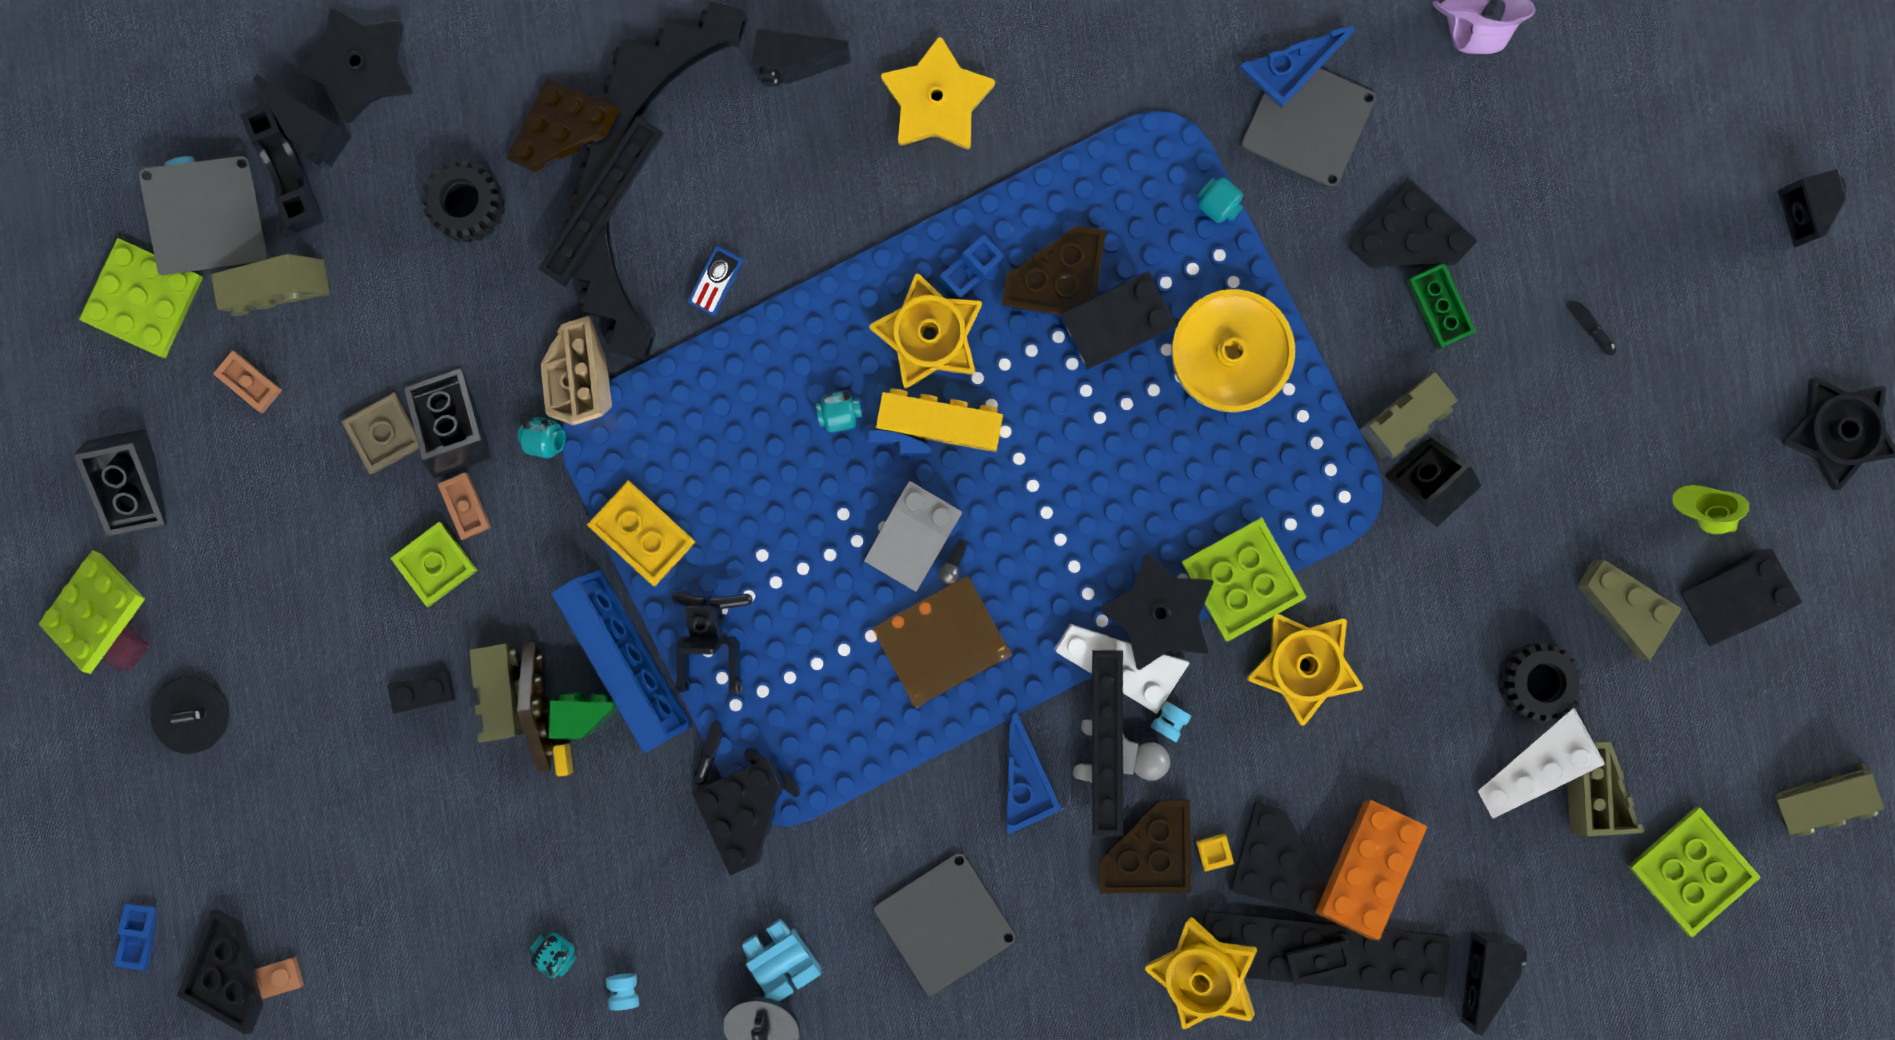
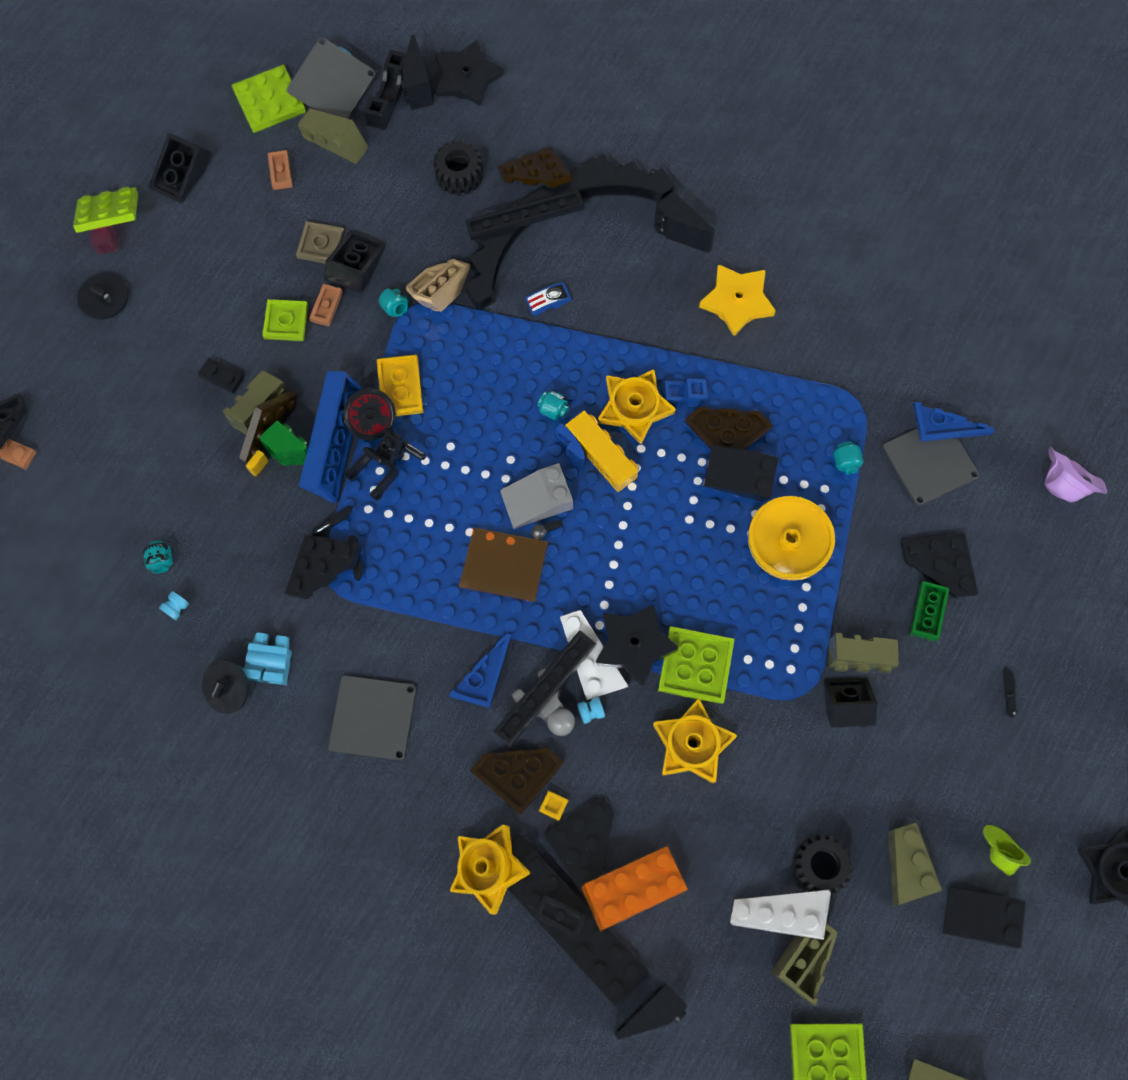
camera: 40 degrees right, 15 degrees down
(641, 599) = (369, 413): none -> black shield

